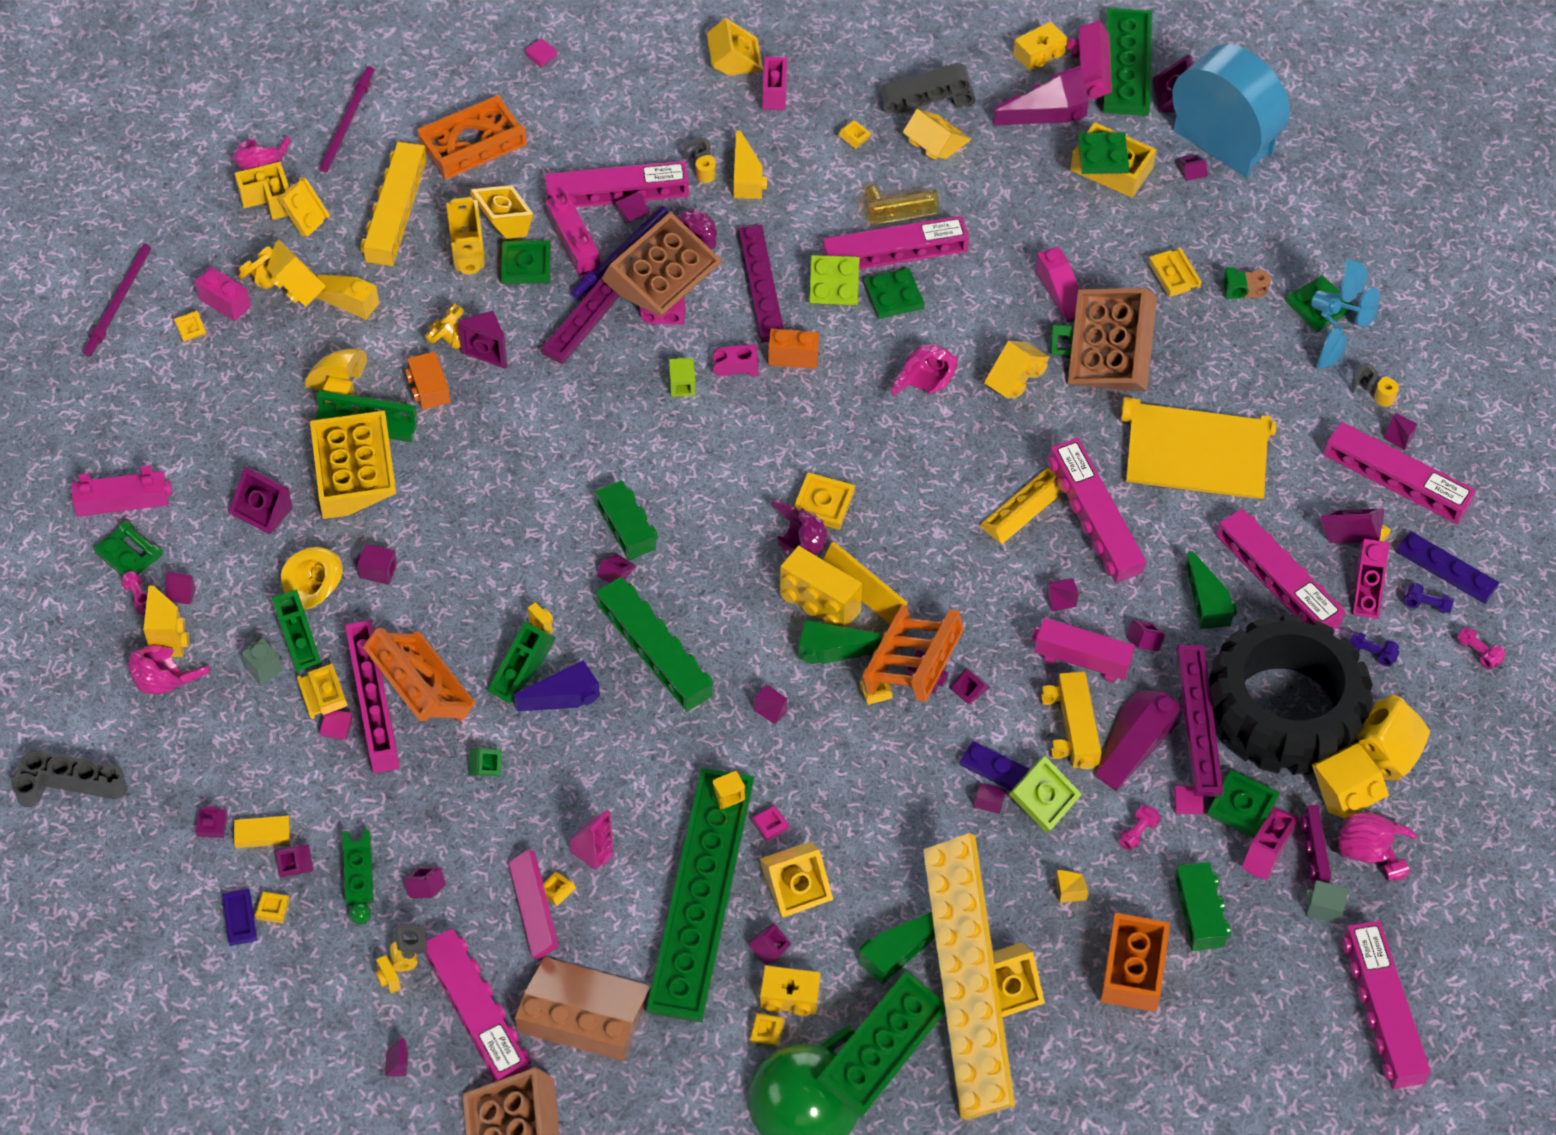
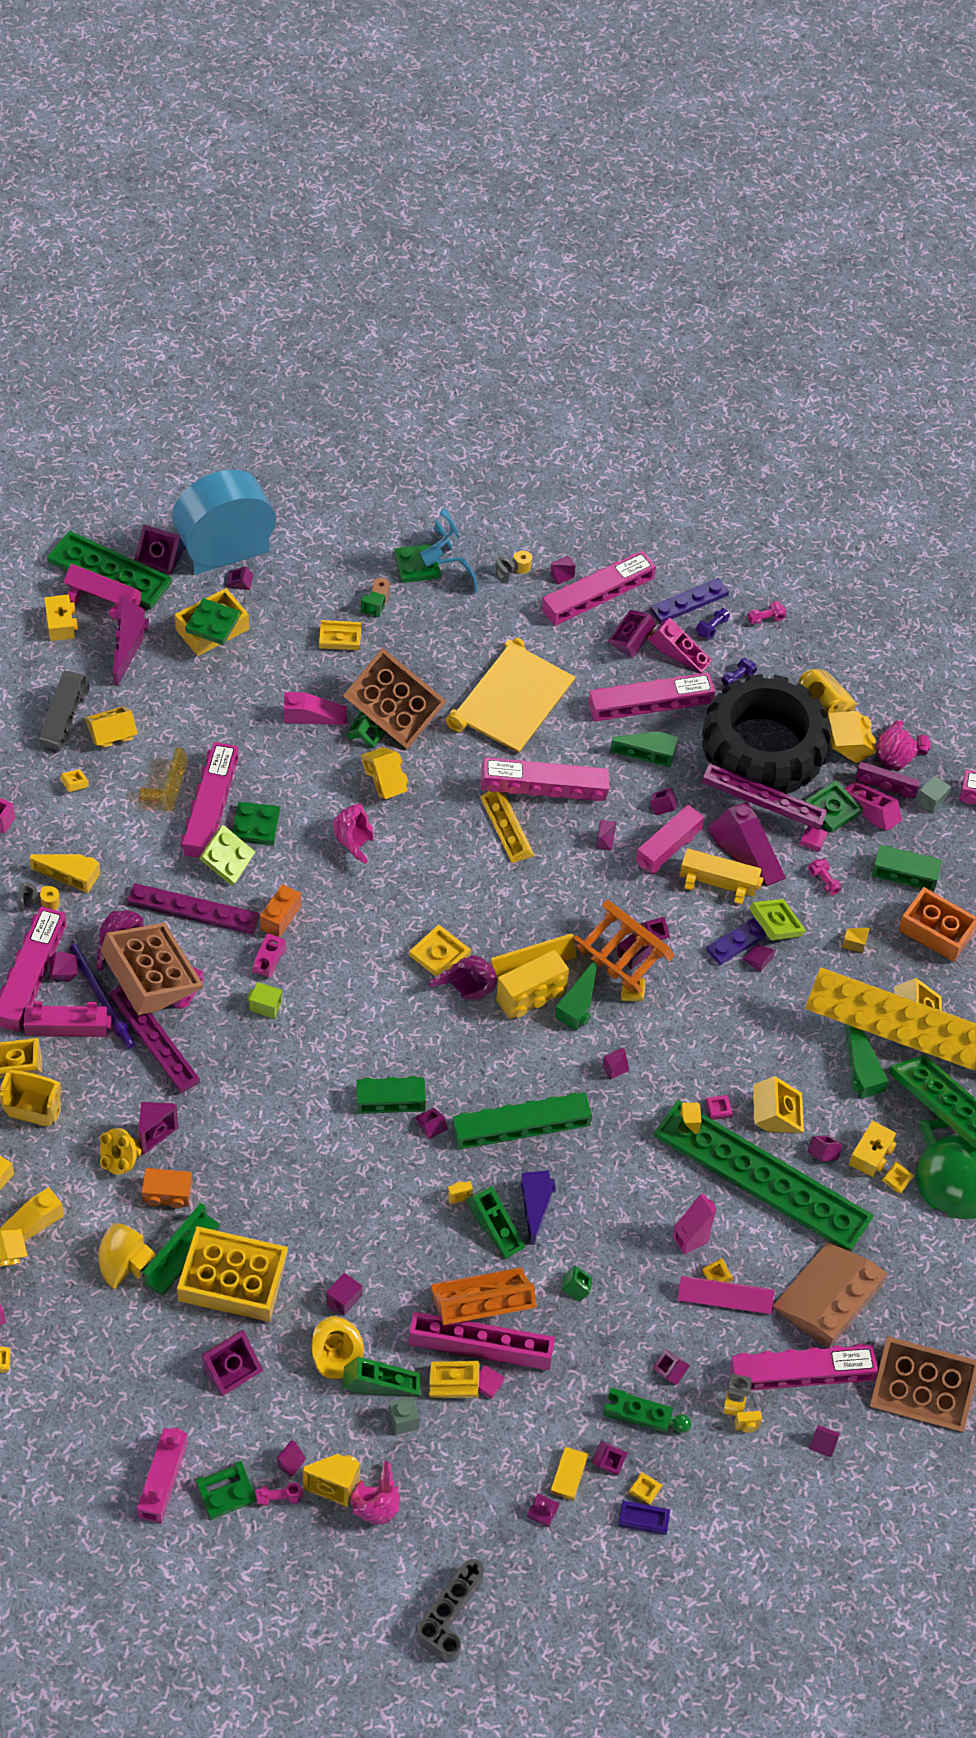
camera: 70 degrees left, 0 degrees up
(526, 262) = (75, 1067): green plate -> none

